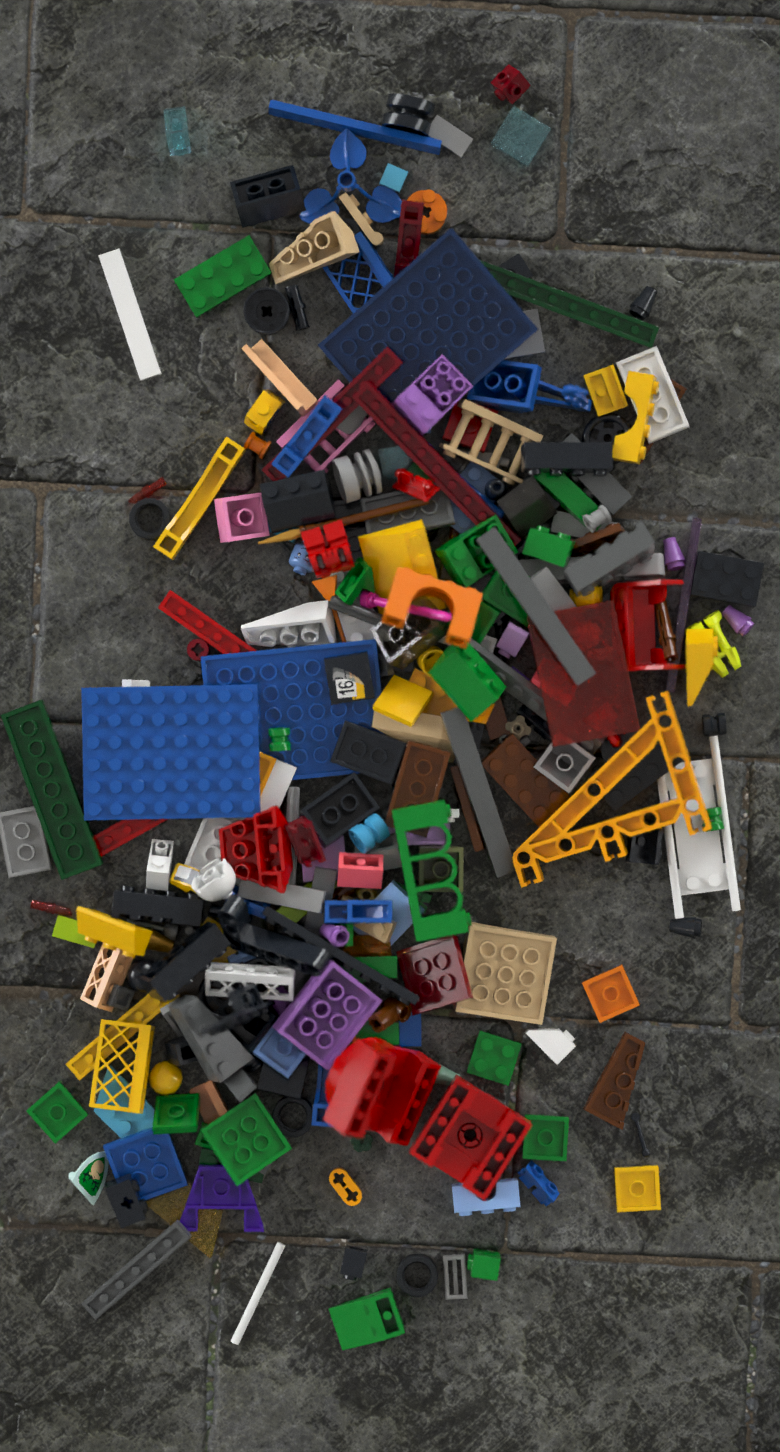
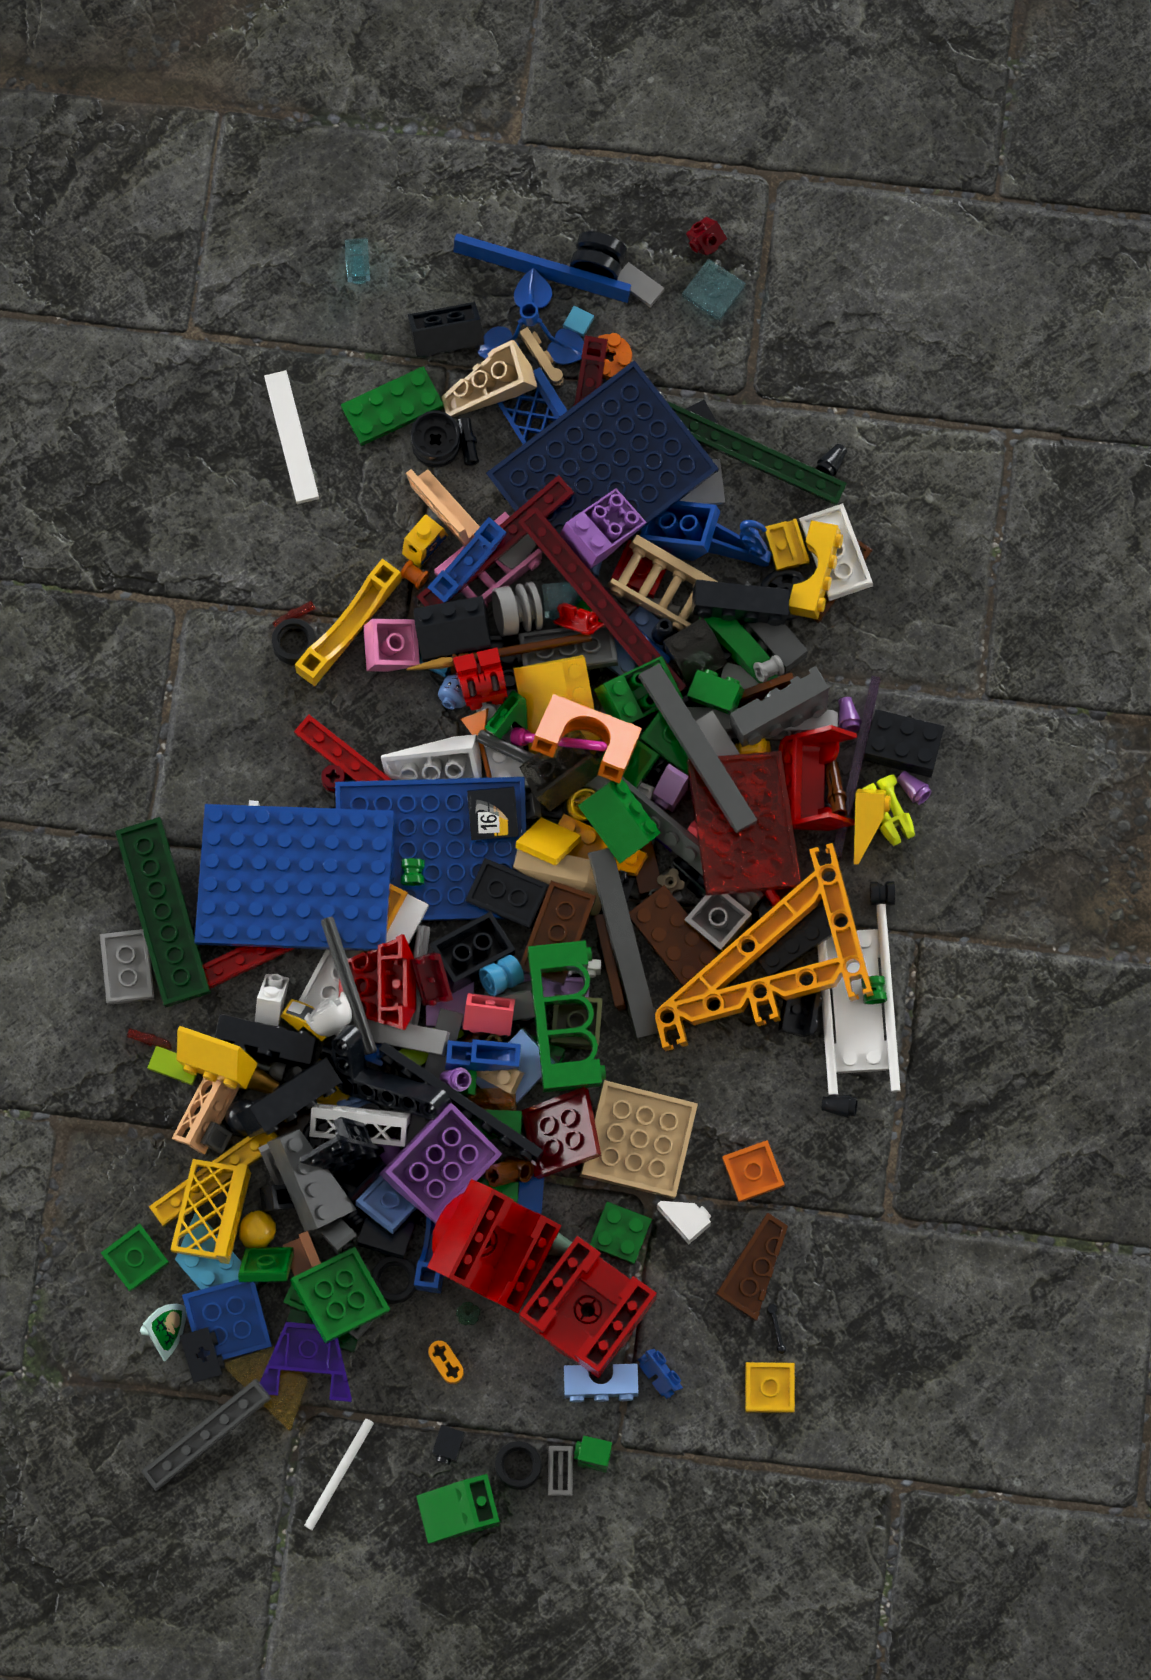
camera: 10 degrees right, 15 degrees down
(229, 853) = (348, 983): none -> dark grey axle
(546, 1138) = (671, 1323): green plate -> none

